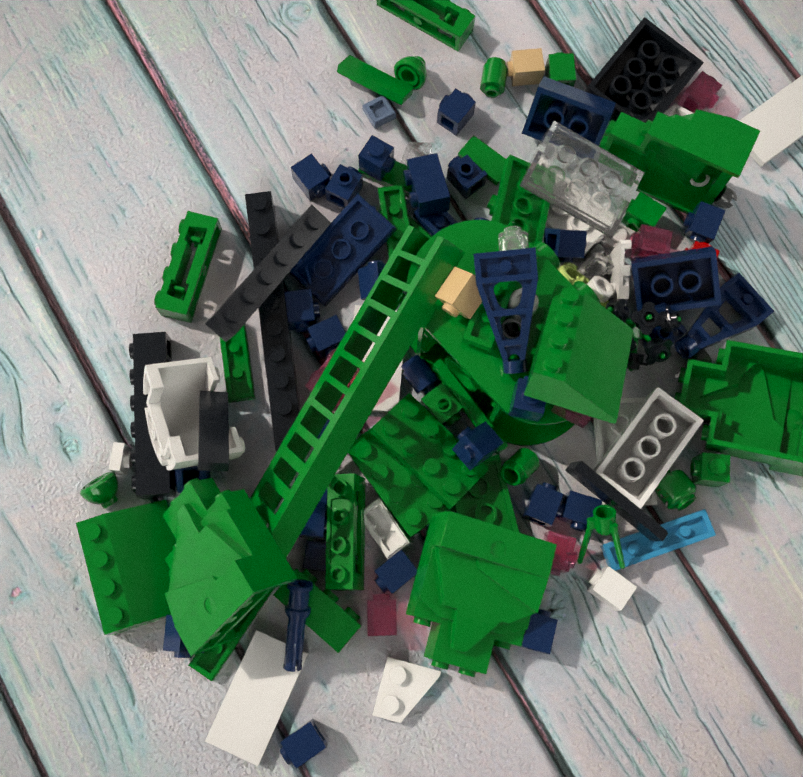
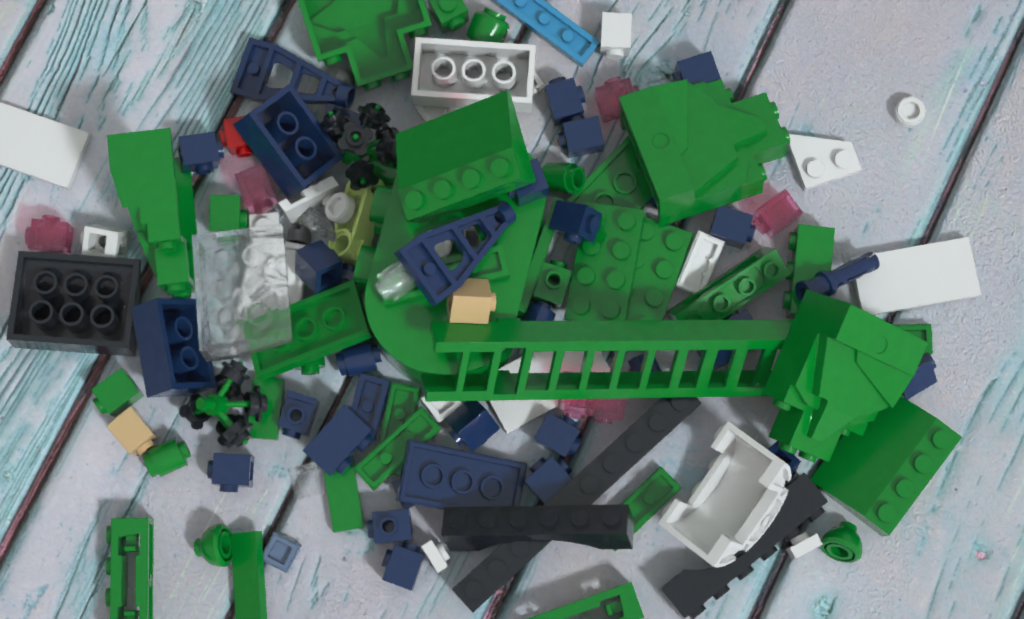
camera: 120 degrees left, 5 degrees up
(213, 431) = (728, 461): black tile -> none
(302, 201) = (436, 555): none -> white plate
(303, 744) = (925, 210): dark blue brick -> none
(315, 556) = (764, 306): dark blue tile -> none
(376, 158) = (344, 509): dark blue brick -> none
(487, 126) = (227, 394): none -> black plant
(605, 524) = (567, 69): green plant -> none
(617, 500) = (540, 73): black tile -> none

